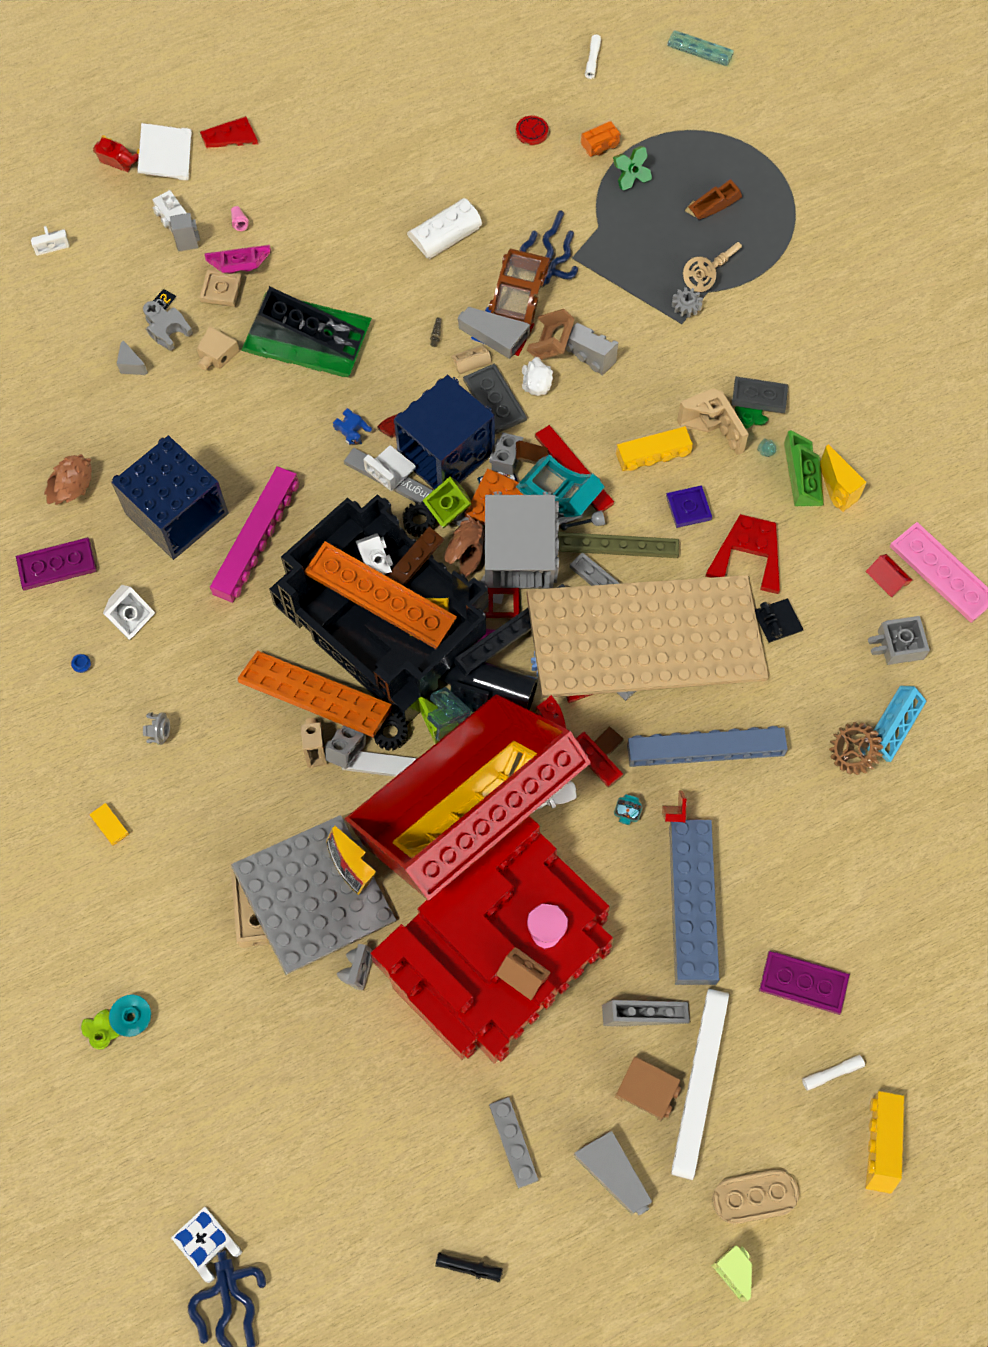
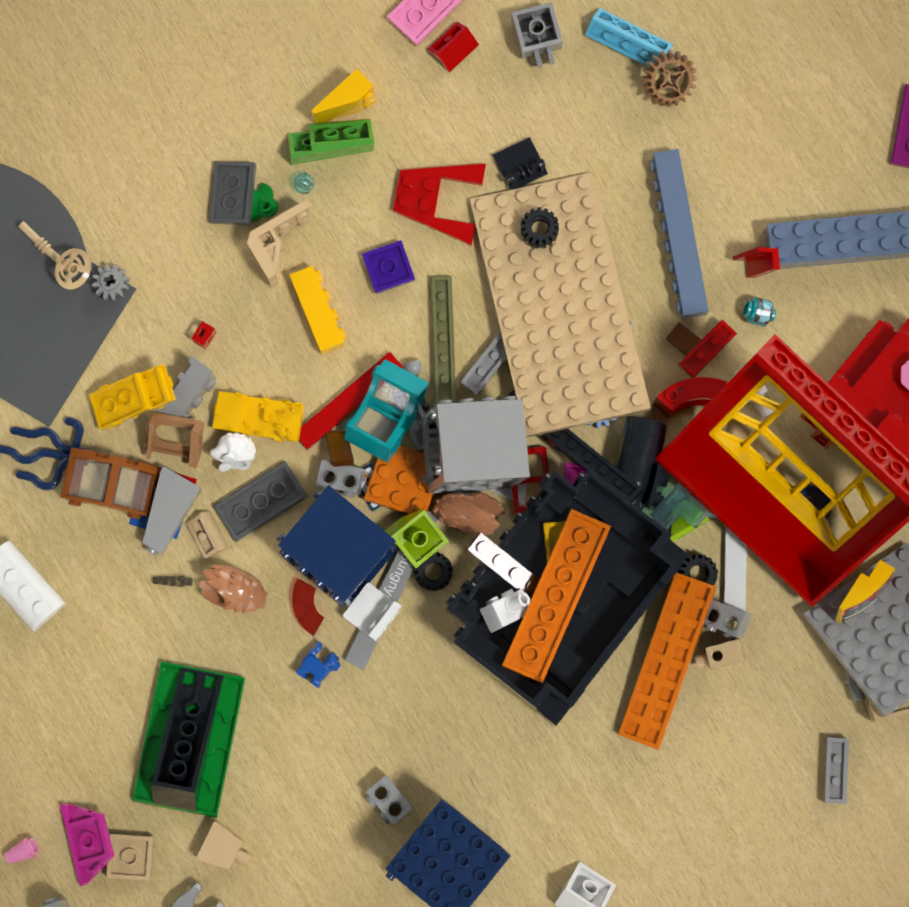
camera: 95 degrees left, 15 degrees up
(109, 824) = (836, 867): yellow tile -> none
(158, 730) = (731, 825): light grey piece -> none
(194, 832) = (836, 770): none -> light grey plate
(234, 473) = (393, 796): none -> light grey brick
(254, 535) = (471, 759): dark pink brick -> none
(422, 368) = (232, 589): none -> nougat head
(565, 399) = (258, 416): none -> yellow piece
(589, 305) = (132, 397): none -> yellow piece
(642, 367) = (208, 336): none -> red piece
(709, 629) = (539, 240): none -> black tyre

